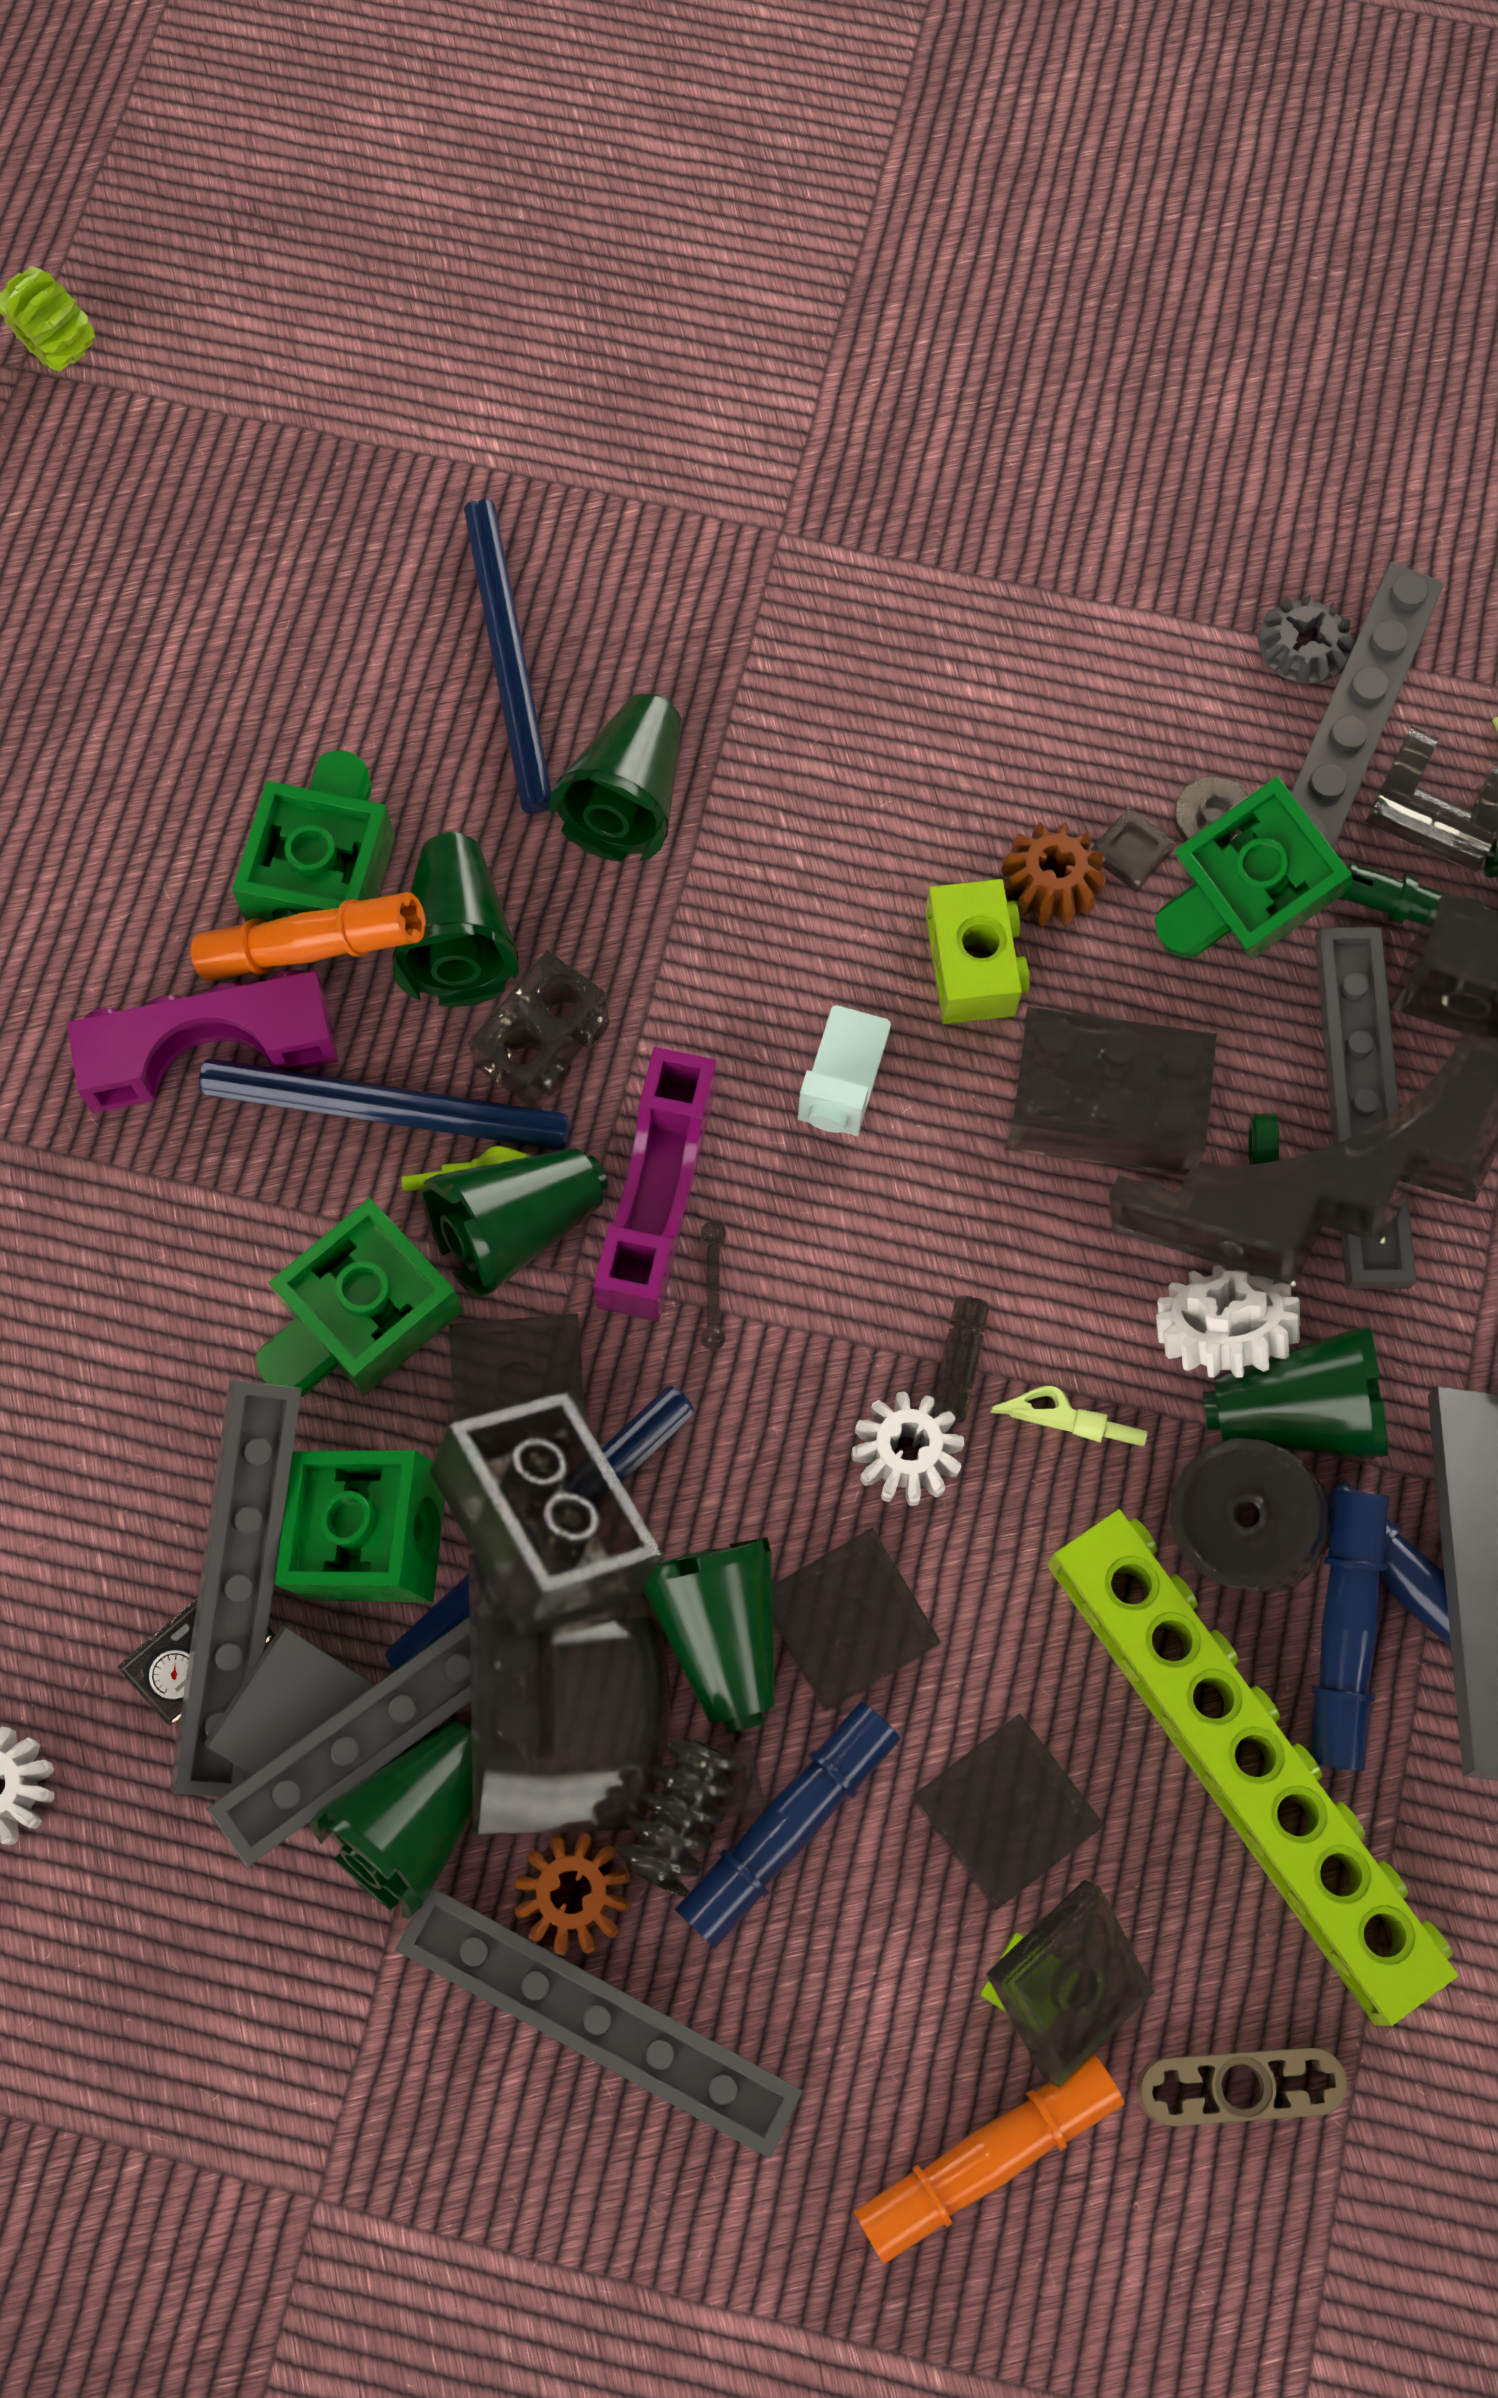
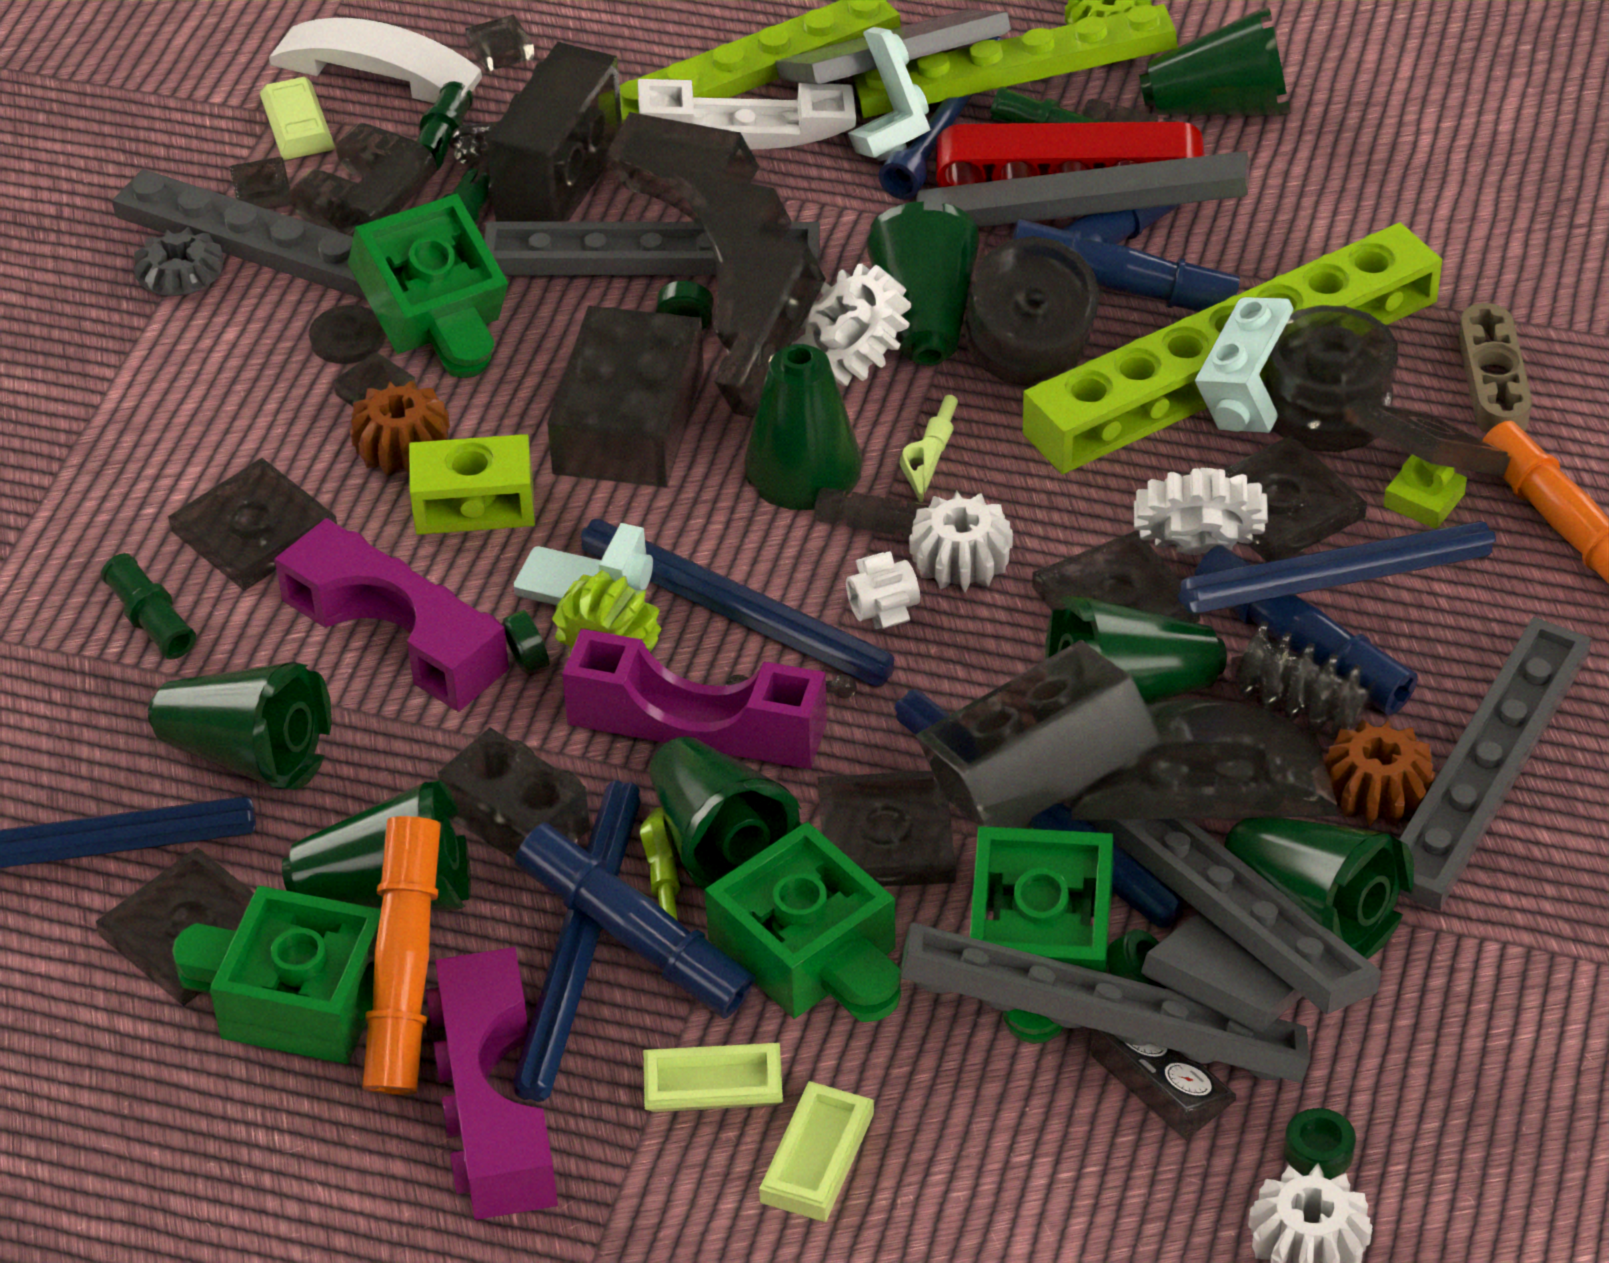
camera: 85 degrees left, 25 degrees down
(110, 1806) = (1320, 1138): none -> dark green tile
(129, 1331) = (816, 1151): none -> yellowish green tile
(212, 1233) = (712, 1077): none -> yellowish green tile
(324, 1624) = (1128, 955): none -> dark green tile
(374, 1138) = (635, 920): none -> dark blue piece
(420, 770) = (156, 914): none -> clear smoke tile
(743, 950) = (342, 578): none -> magenta arch
(750, 1022) = (525, 642): none -> dark green tile
(757, 1092) = (605, 607): none -> lime gear
(797, 679) = (148, 606): none -> dark green pin
(823, 1226) = (754, 609): none -> dark blue axle
(826, 1366) = (883, 590): none -> white gear
(856, 1865) = (1335, 567): none -> dark blue axle
(925, 760) = (248, 522): none -> clear smoke tile
(926, 1704) = (1200, 511): none -> white gear
(1044, 1280) = (801, 432): none -> dark green cone
(1186, 1763) = (1232, 369): none -> light aqua bracket
(1224, 1867) = (1322, 365): none -> clear smoke wheel
(1442, 702) = (262, 183): none -> clear smoke tile

